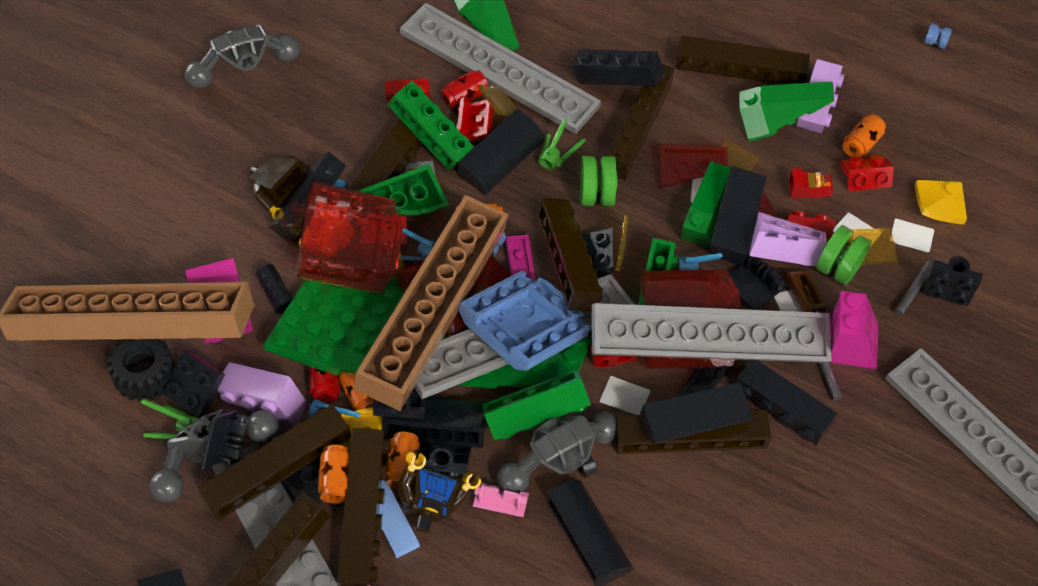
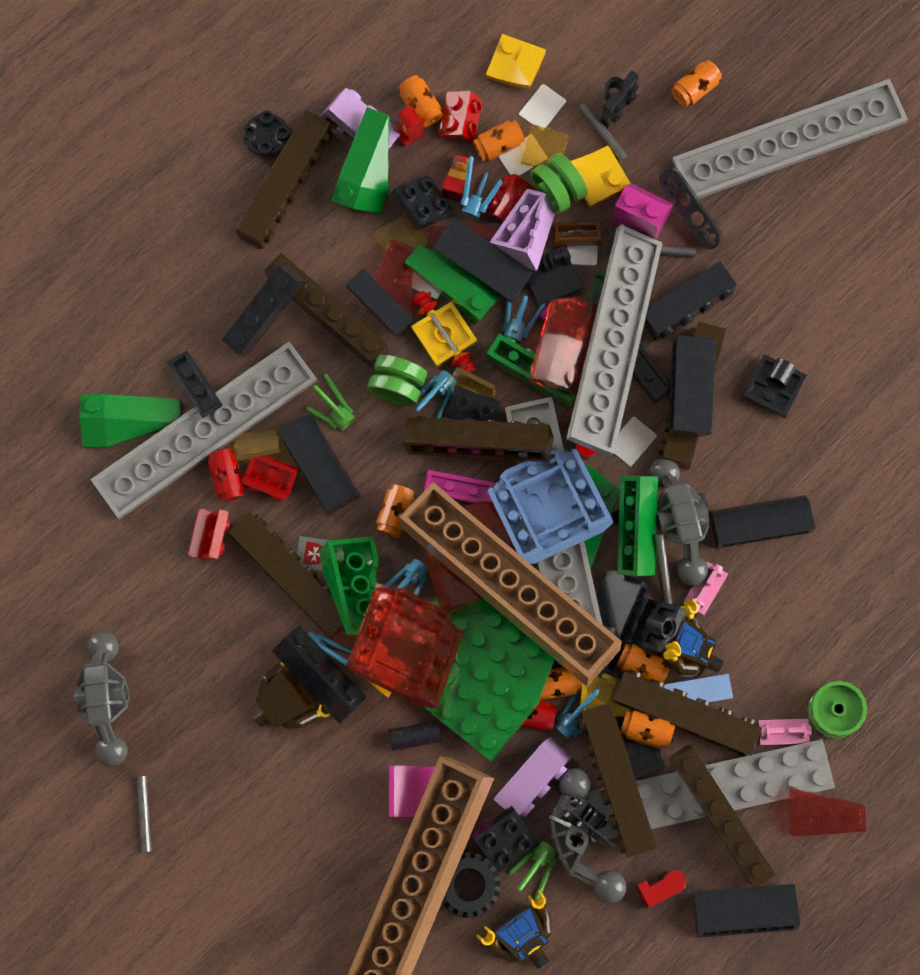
camera: 70 degrees left, 20 degrees up
(102, 425) = (523, 934): none -> torso
(151, 115) = (144, 814): none -> flat silver bar
(183, 547) = (671, 884): none -> red leg
(430, 125) = (276, 524): green brick -> none
(504, 447) = (663, 567): none -> flat silver bar
(534, 48) = (194, 384): none -> black tile
(610, 220) = (442, 385): none -> dark azure plant
(659, 212) = (443, 333): none -> yellow plate
(664, 152) = (379, 302): none -> black tile
(735, 505) = (774, 385): none -> black plate
(772, 159) = (422, 202): none -> black plate
(776, 37) = (266, 134): none -> black dish
(790, 200) = (474, 204): none -> dark azure plant
(837, 129) = (409, 126): none -> red leg
(869, 210) = (507, 134): none -> orange piece
(874, 375) = (687, 210): none -> black beam
(878, 289) = (601, 176): none -> yellow plate
(1016, 359) = (696, 83): none -> orange piece

